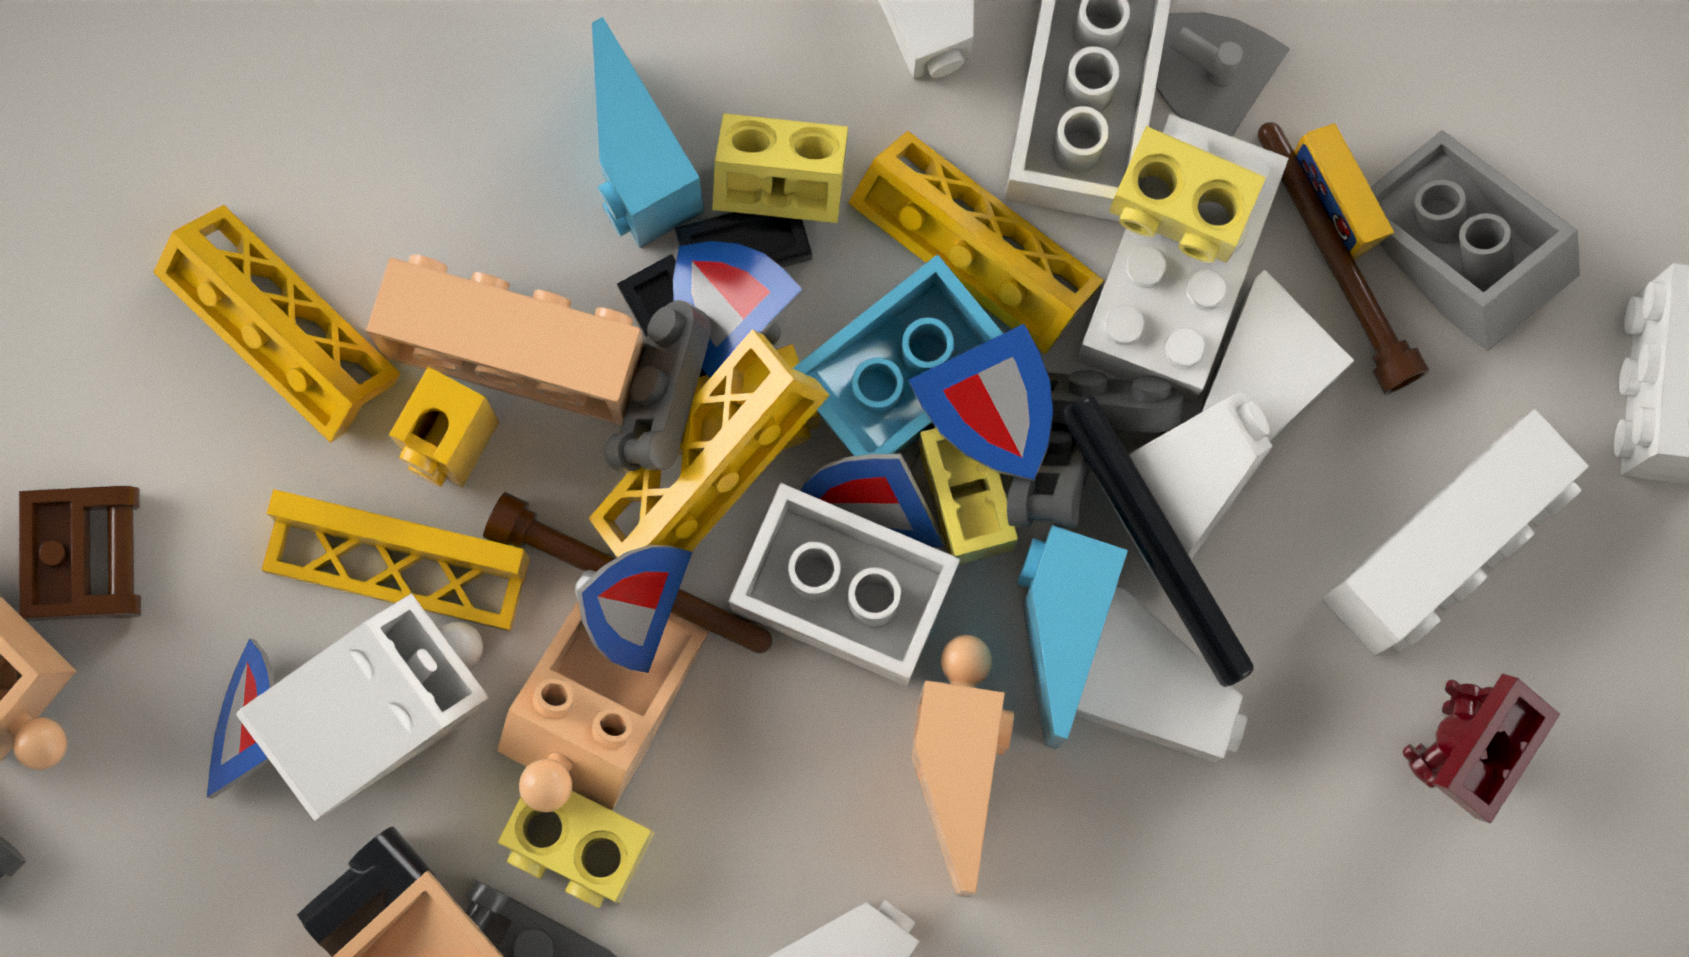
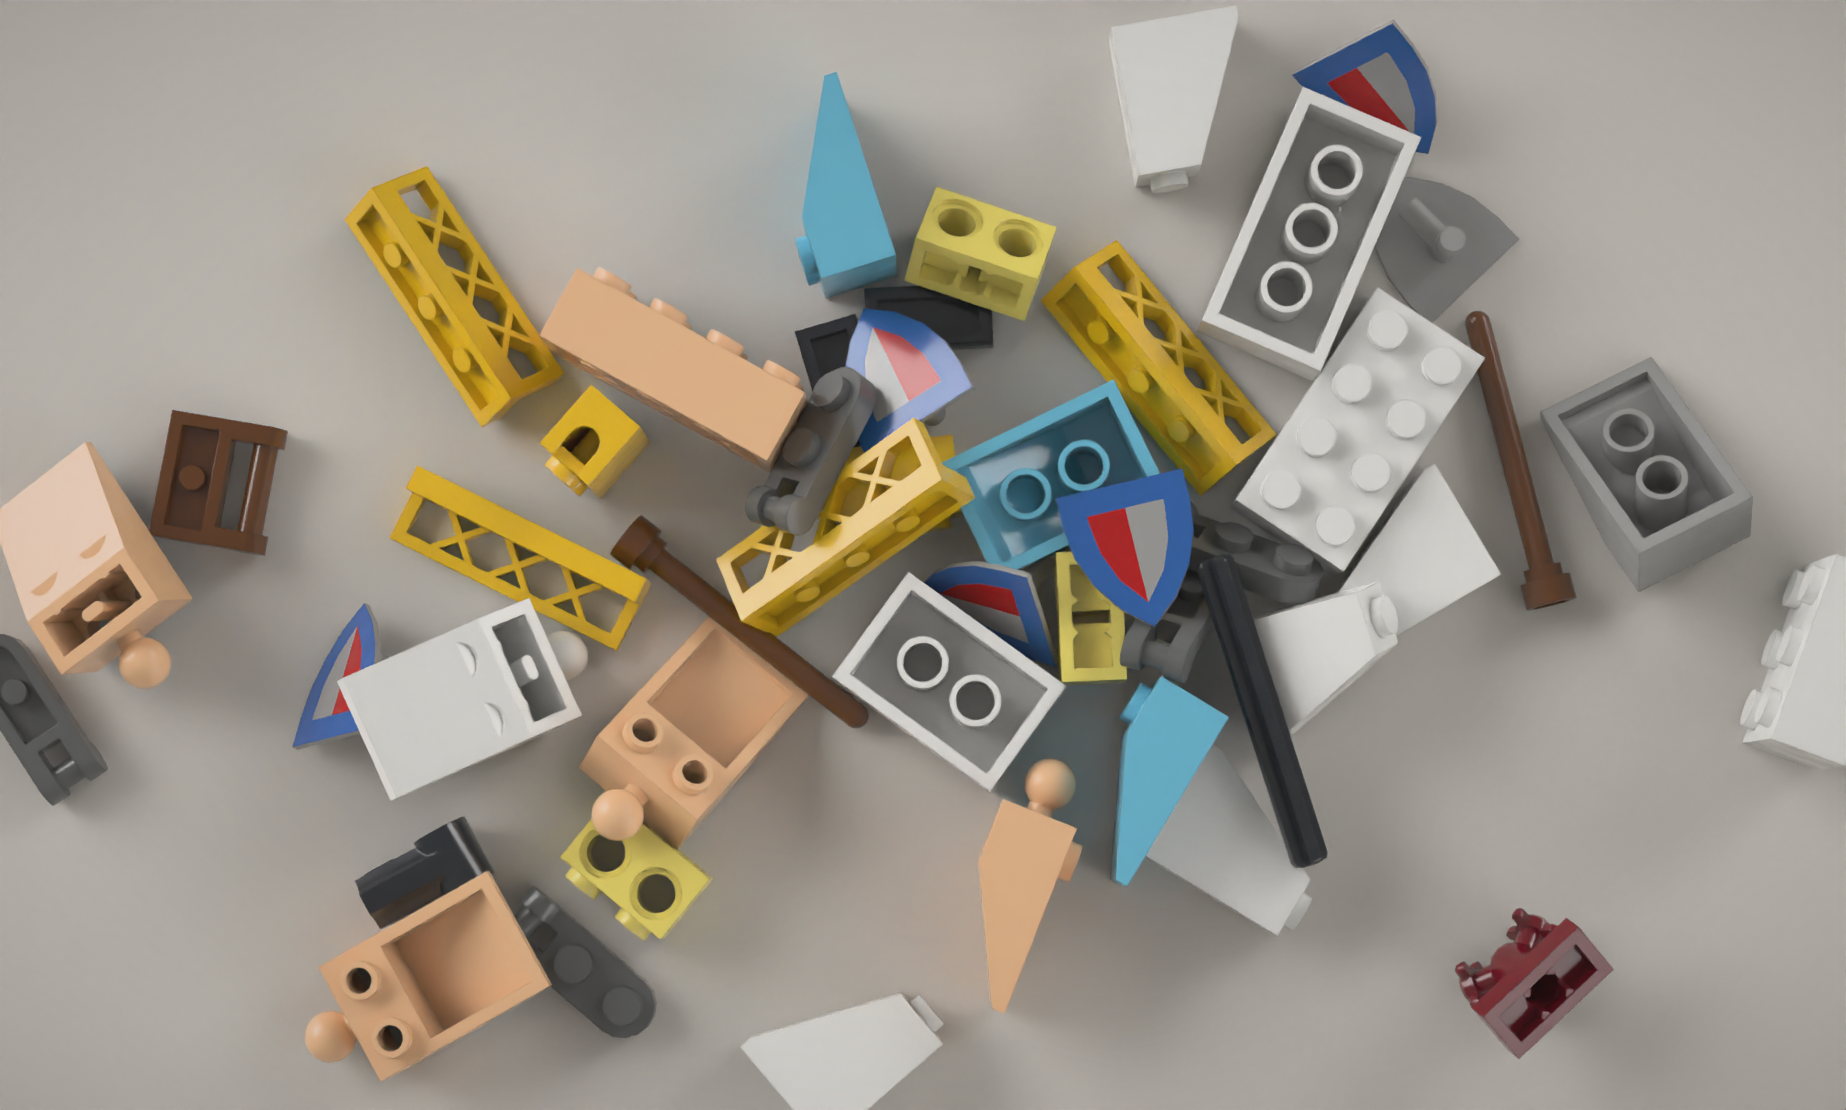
camera: 20 degrees right, 5 degrees up
(631, 602) = (737, 655): shield -> none
(1192, 180) = (1380, 364): light yellow brick -> none
(1343, 189) = (1535, 398): yellow slope -> none
(1466, 524) = (1559, 767): white brick -> none

